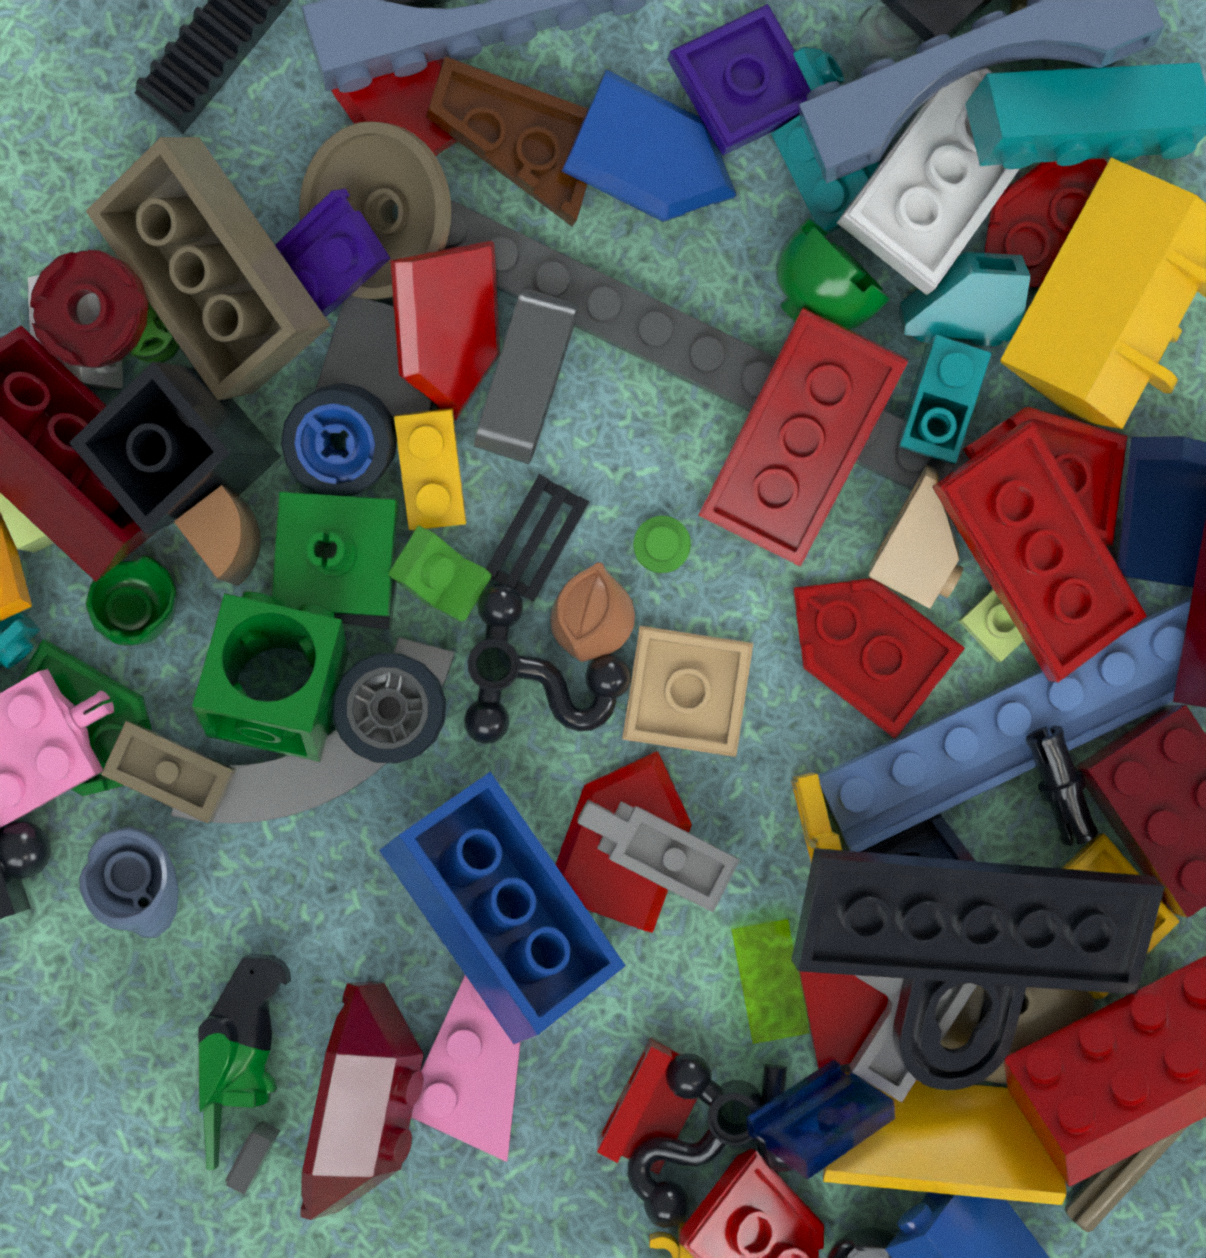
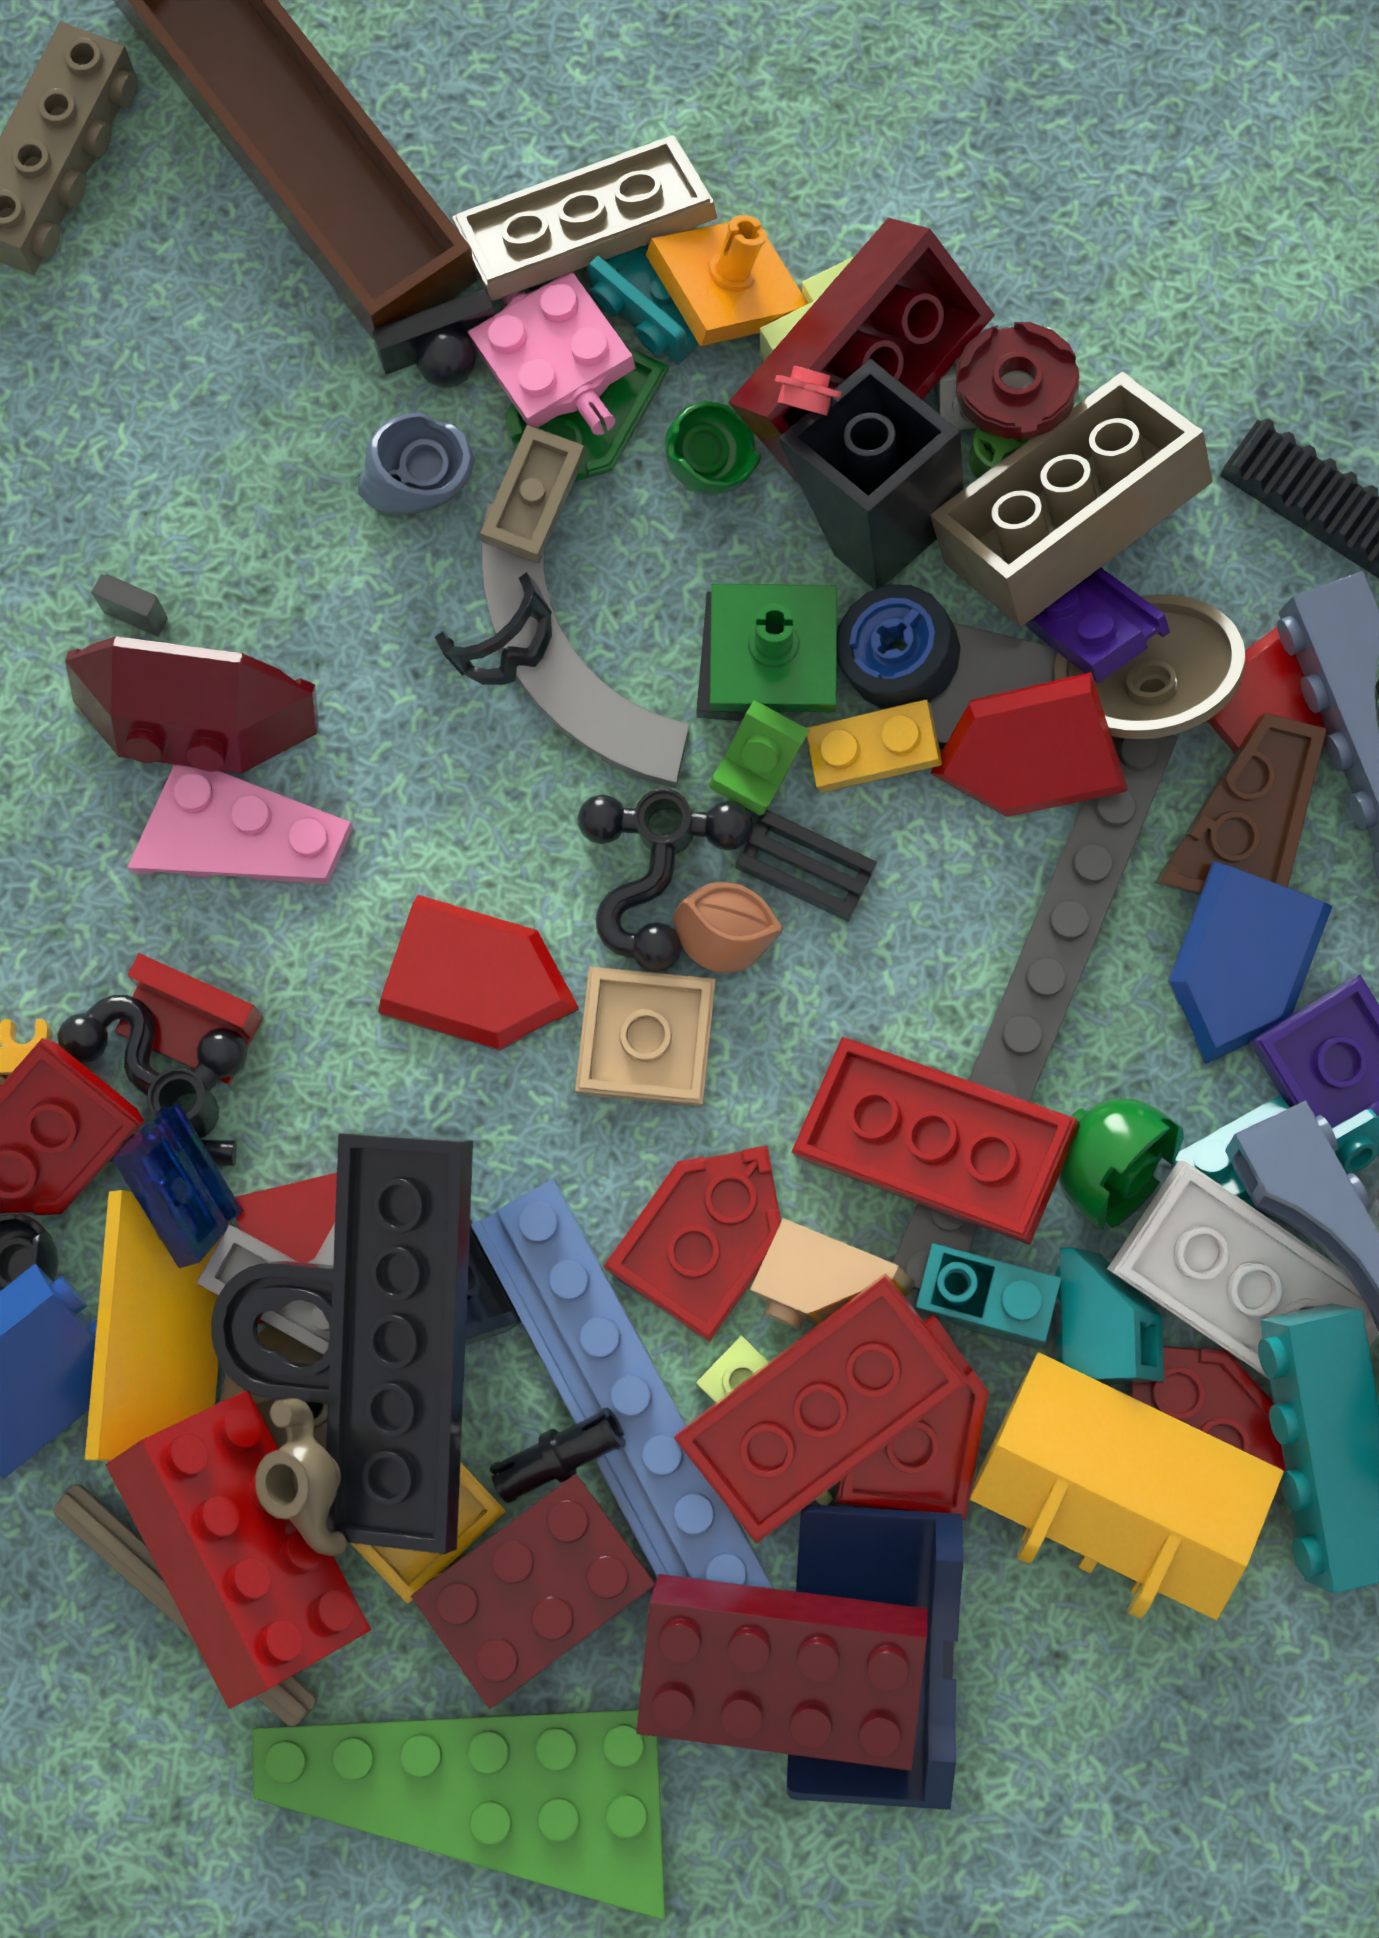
camera: 90 degrees right, 10 degrees down
(104, 503) = (806, 390): none -> coral plate
(223, 534) = (785, 531): medium nougat brick -> none
(237, 1045) = (247, 580): animal -> none
(280, 776) = (511, 657): none -> black helmet
(284, 726) = (675, 548): green brick -> none
(365, 727) = (587, 692): wheel -> none
(502, 909) = (400, 838): blue brick -> none
(526, 375) = (983, 839): dark grey beam -> none
(661, 544) = (807, 998): bright green plate -> none
(661, 852) = (466, 1008): light grey hinge -> none
(769, 980) = (308, 1142): clear neon green tile -> none
(813, 814) = (512, 1176): yellow tile -> none
(1094, 1012) = (300, 1479): none -> dark tan piece

